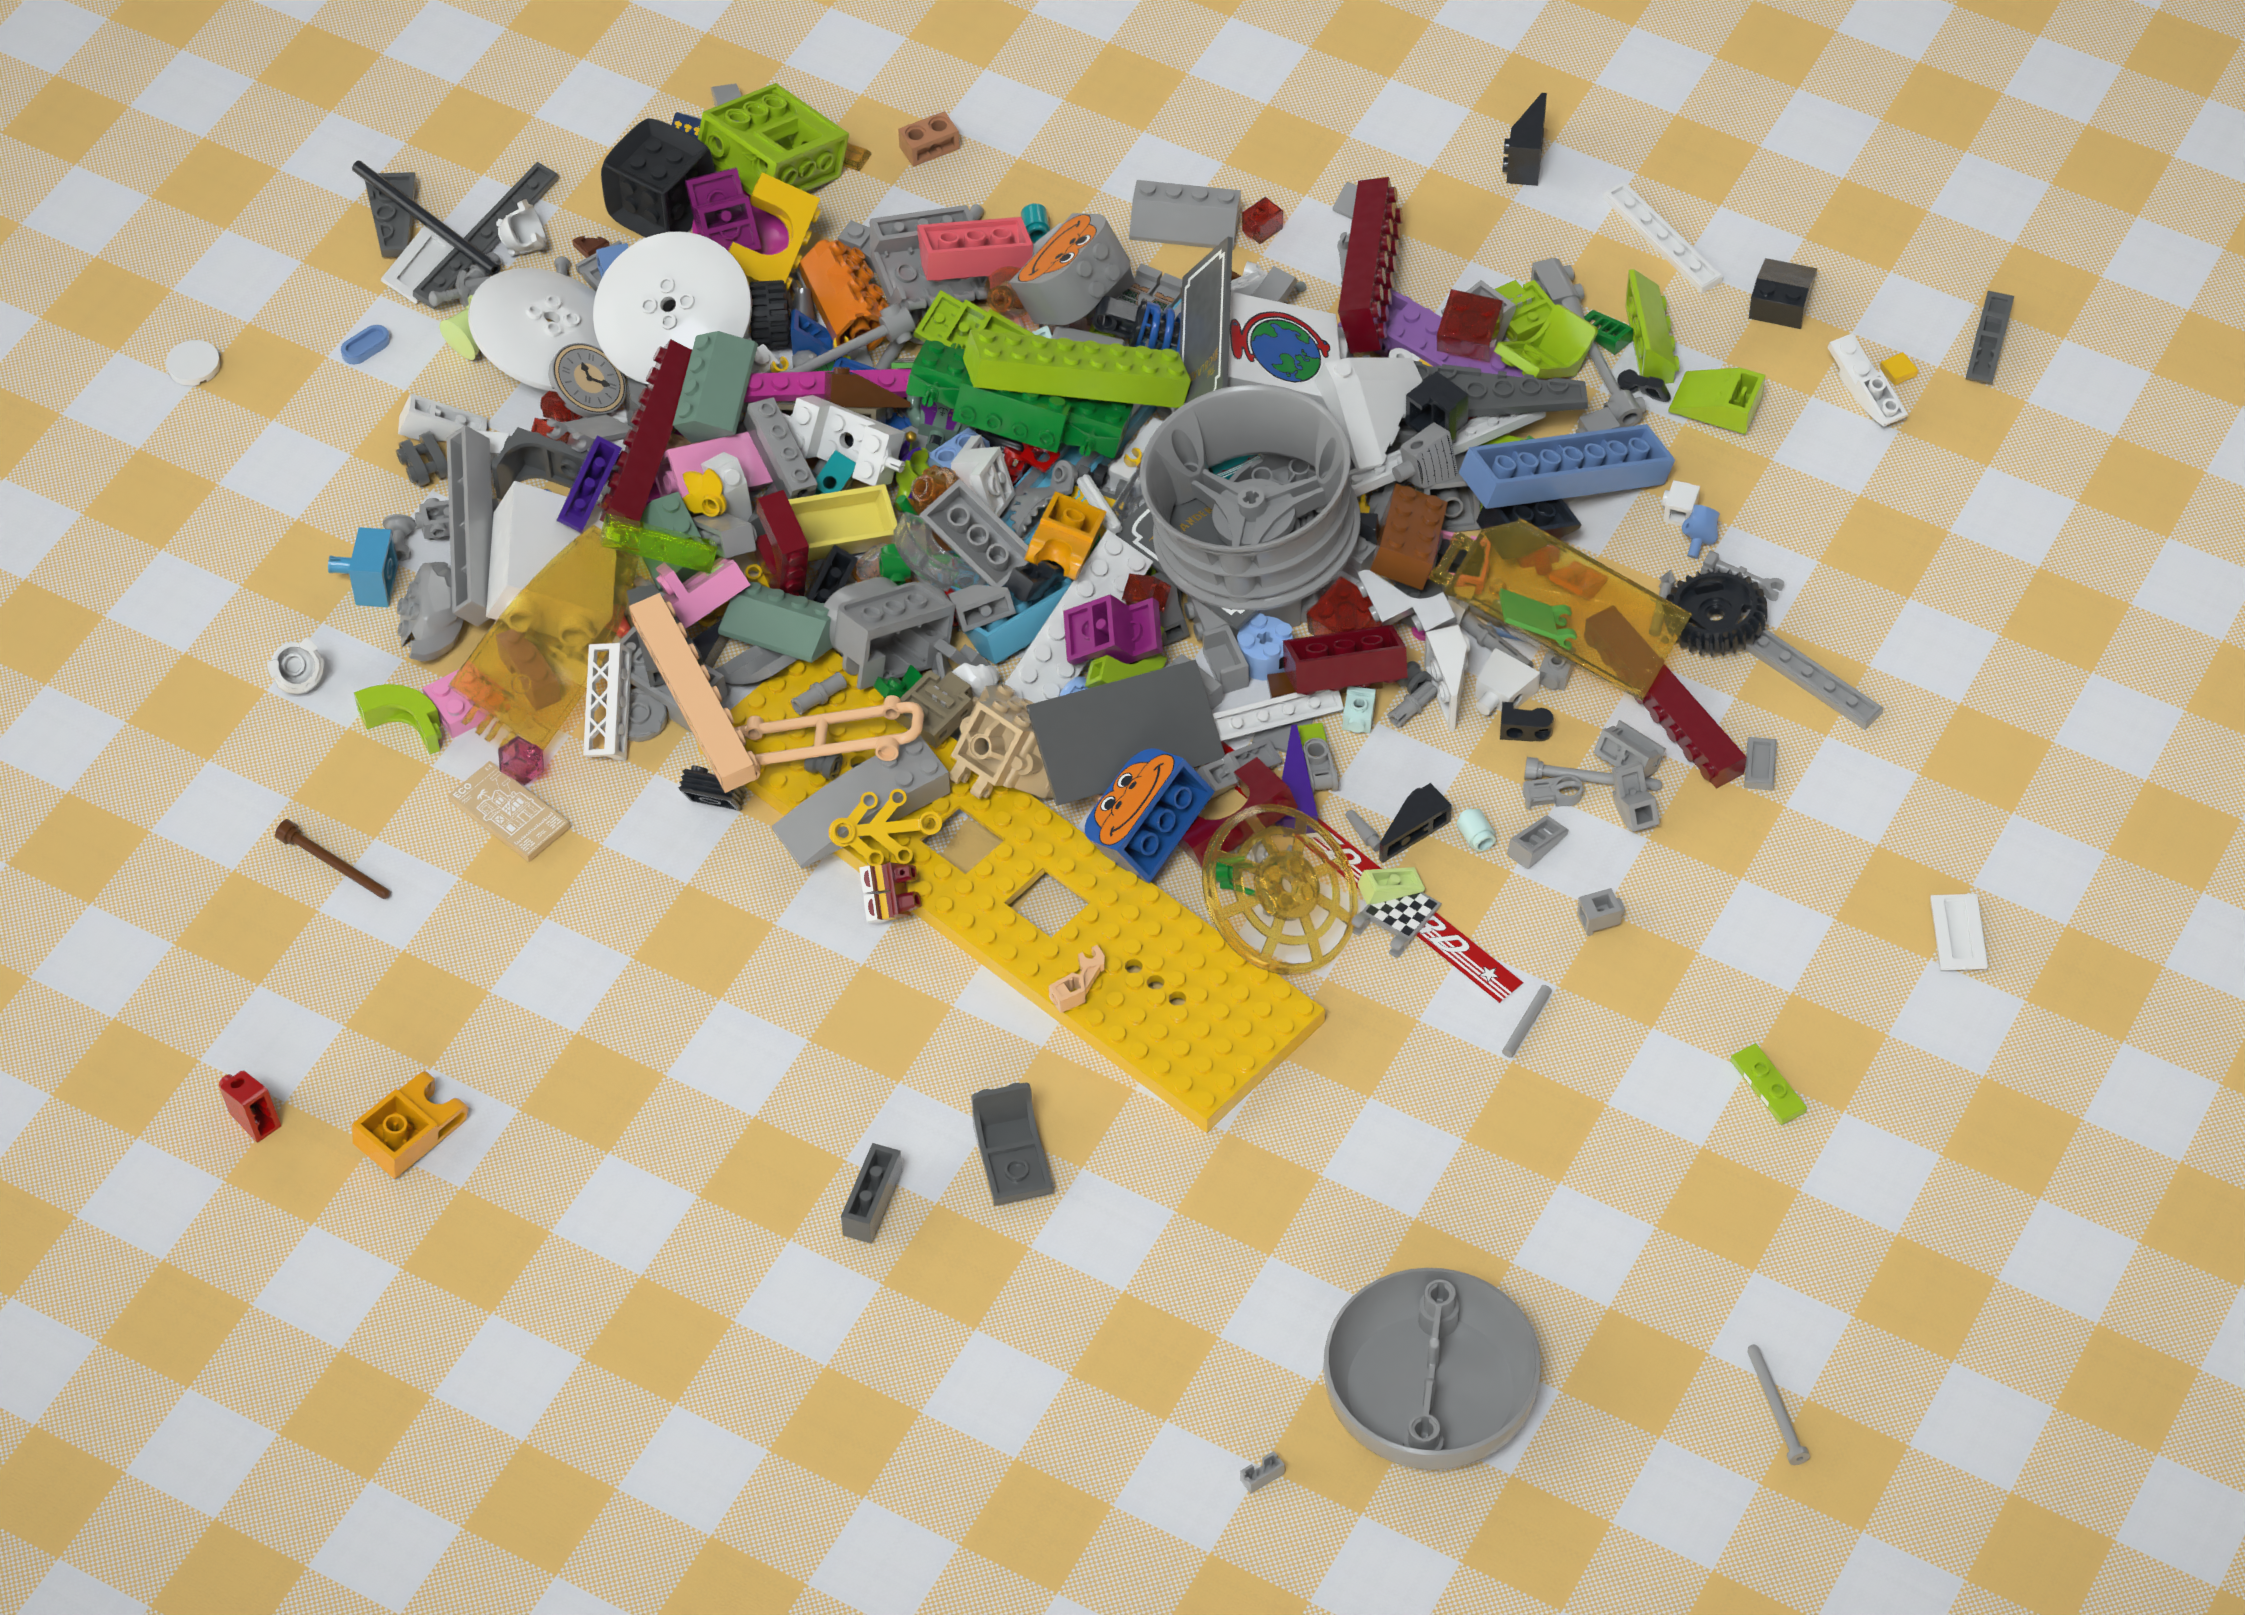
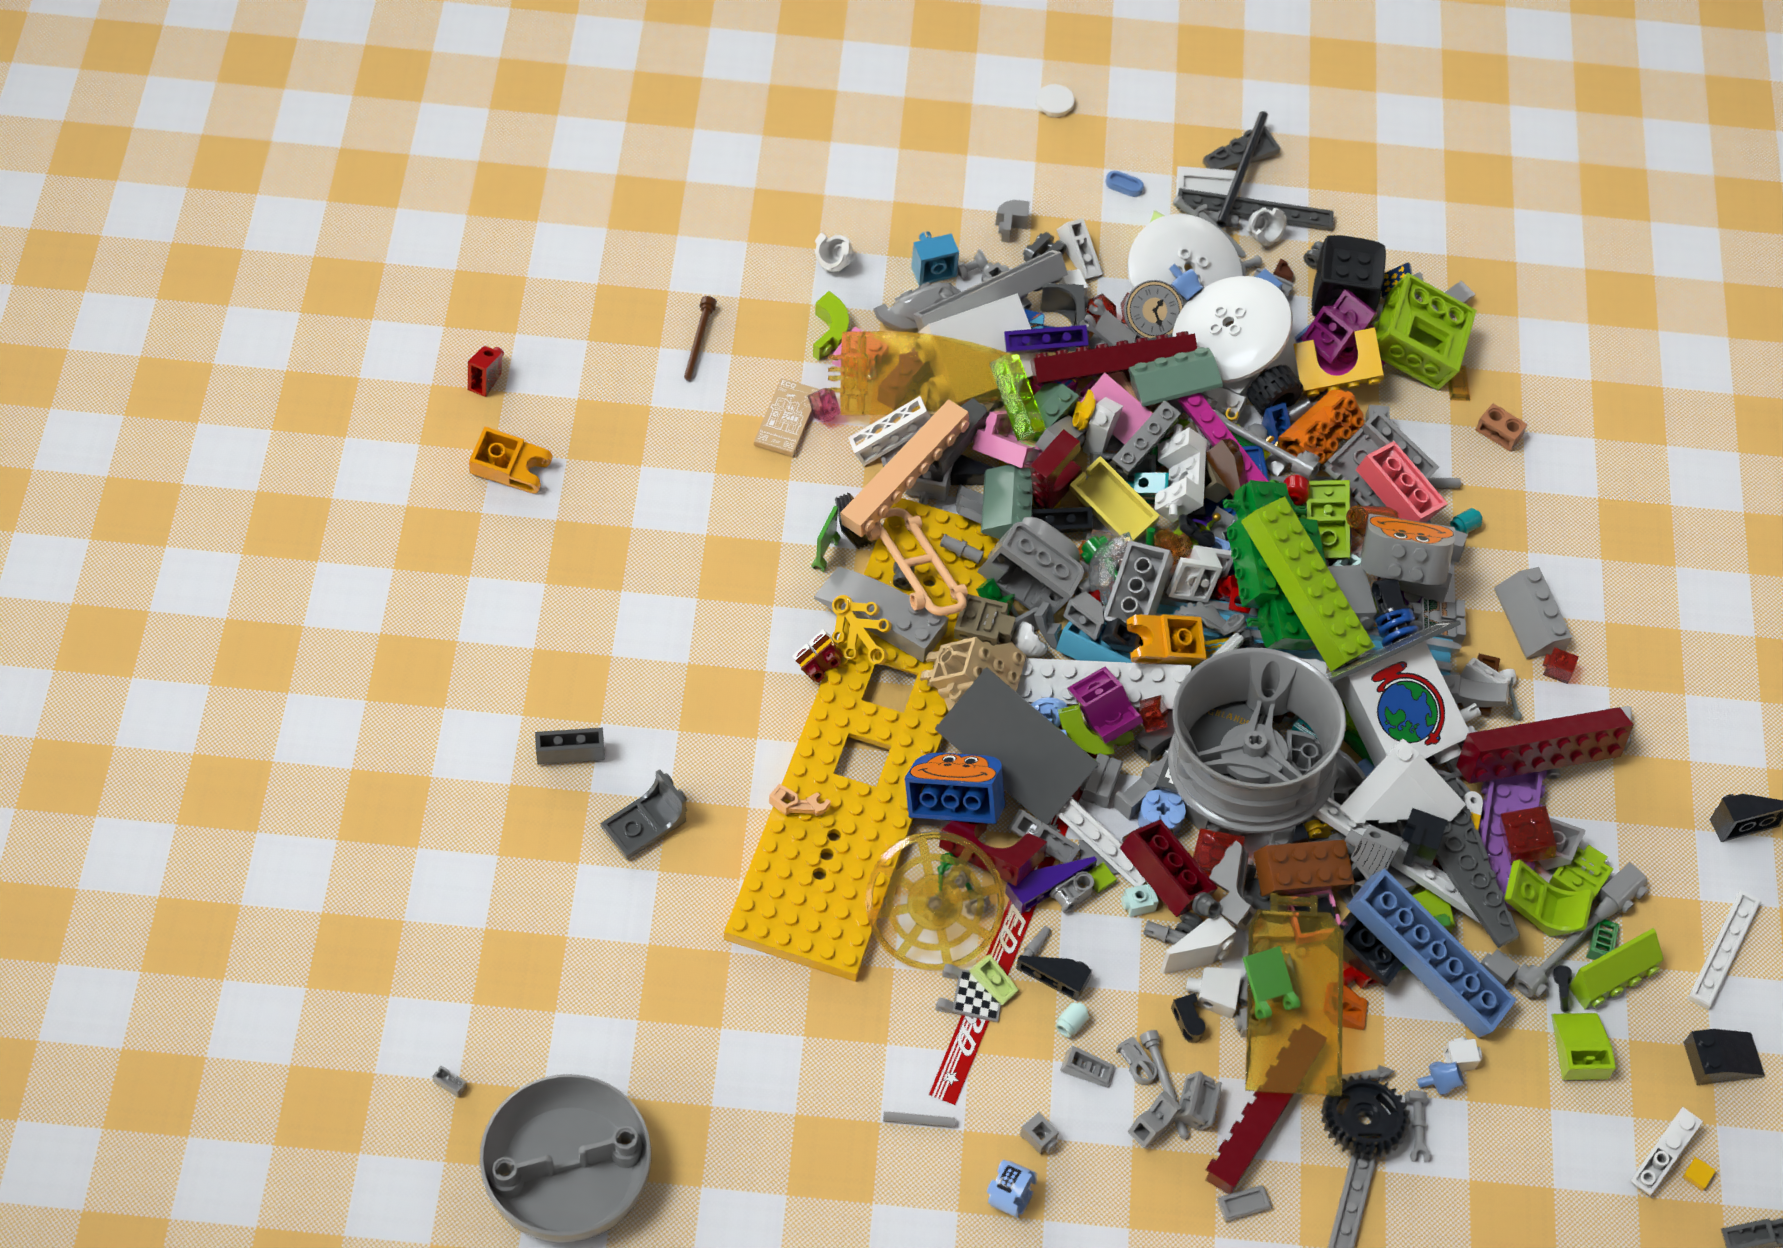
camera: 60 degrees right, 5 degrees up
(350, 471) = (1012, 214): none -> light grey brick
(576, 327) = (1185, 283): none -> medium blue piece
(593, 206) = (1311, 256): none -> dark grey wheel
(729, 819) = (827, 534): none -> bright green flag
(914, 340) = (1298, 489): none -> red head
(937, 455) = (1205, 538): none -> black piece
(1417, 636) = (1205, 905): none -> dark grey piece
(1657, 957) = (1012, 1188): none -> light blue brick

